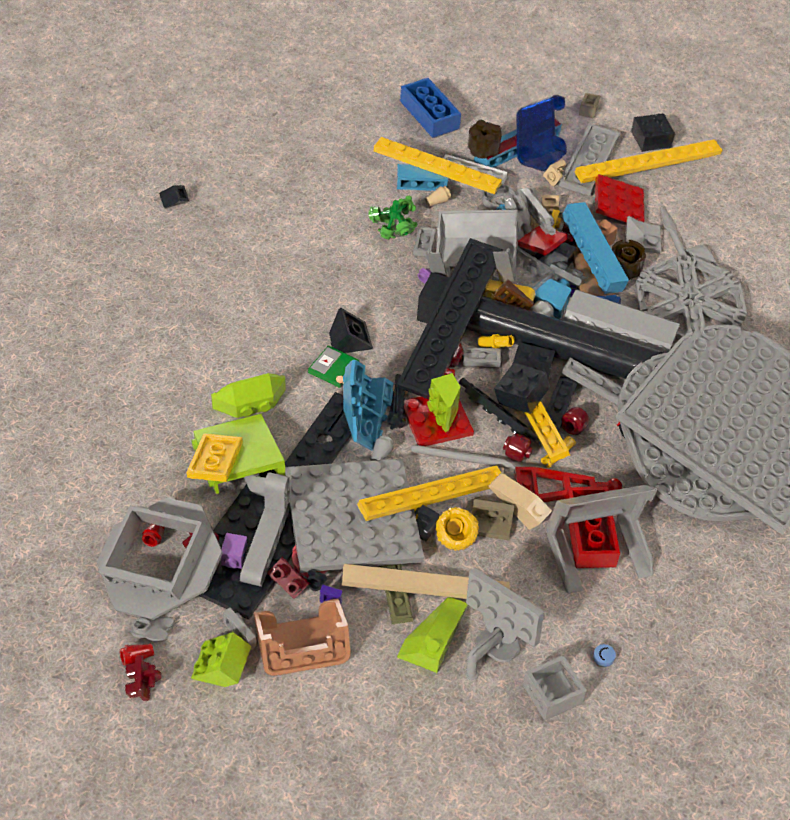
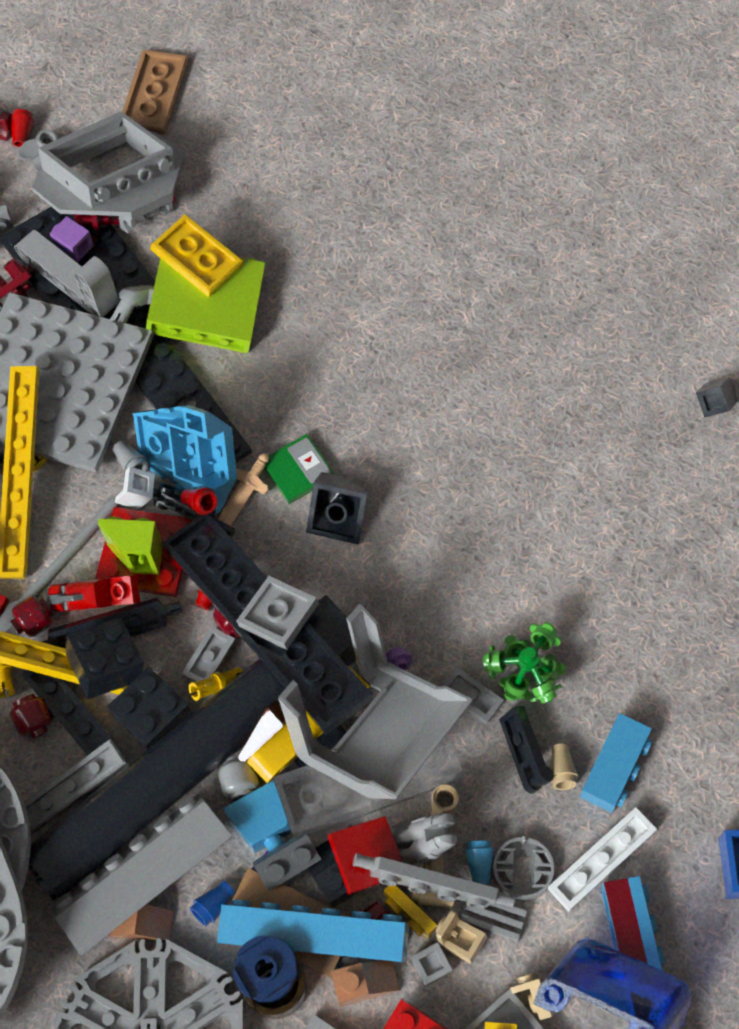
camera: 125 degrees right, 15 degrees up
(55, 582) = (155, 89): none -> medium nougat tile
(249, 395) = (289, 347): lime wedge -> none
(393, 386) = (200, 500): none -> red cone
(402, 430) = (137, 488): none -> white panel
(430, 216) = (525, 750): none -> black plate
(437, 165) = (616, 786): yellow plate -> none
(448, 300) = (277, 612): none -> light grey plate
(484, 139) = (640, 905): dark brown brick -> none
(484, 419) = (94, 593): none -> red plate
(619, 252) = (248, 964): none -> dark blue plate

